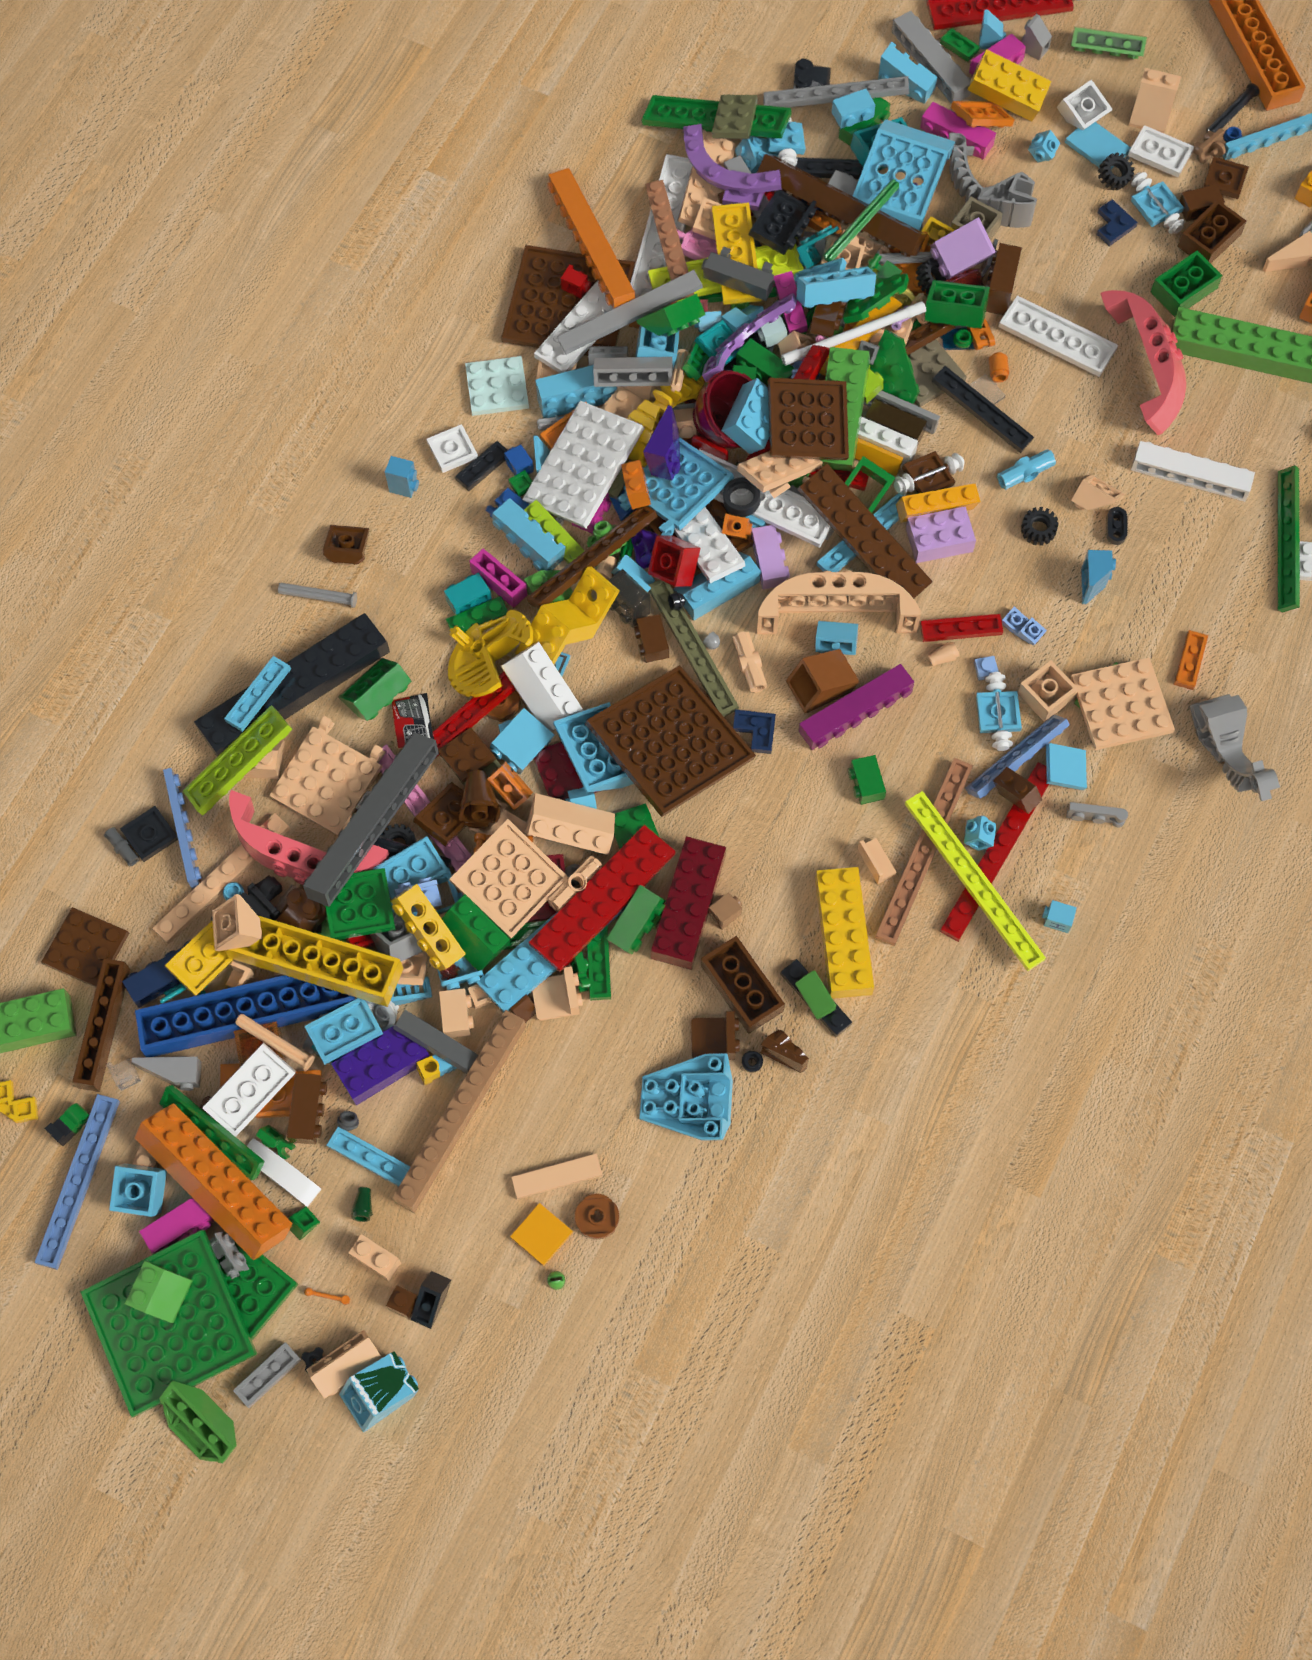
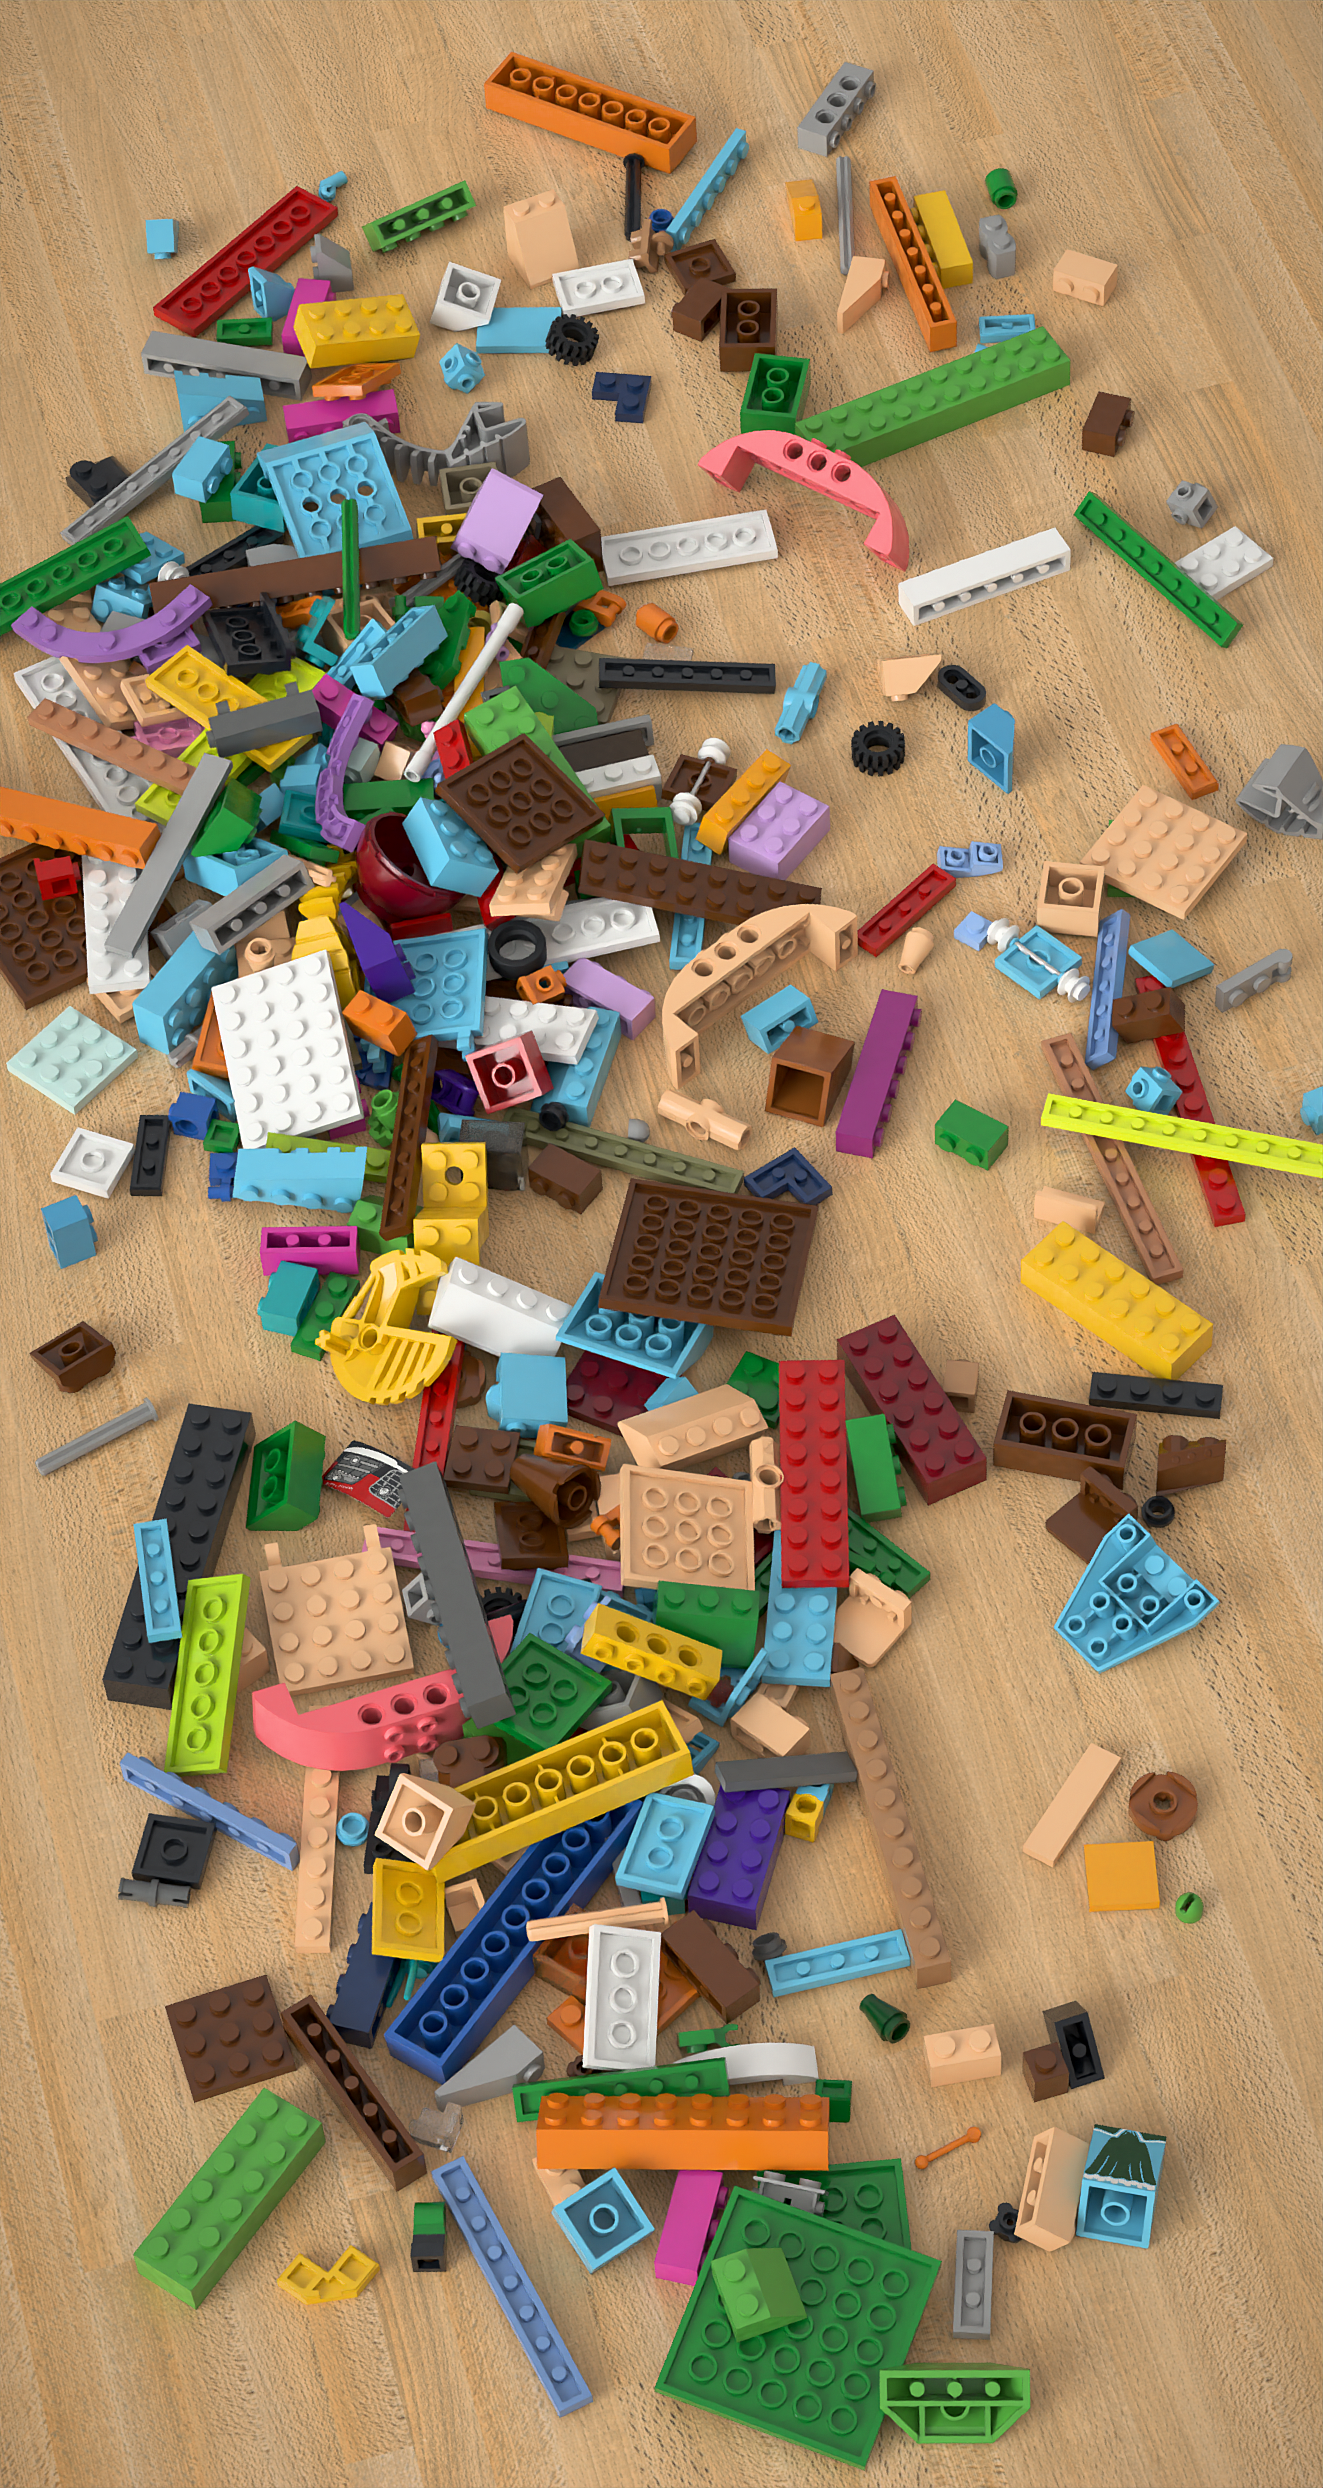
camera: 40 degrees left, 15 degrees down
(614, 402) = (260, 954): none -> light nougat cone
(734, 116) = (67, 570): olive plate -> none
(816, 995) = (1157, 1383): bright green slope -> none
(1157, 203) = (652, 342): medium azure plate -> none

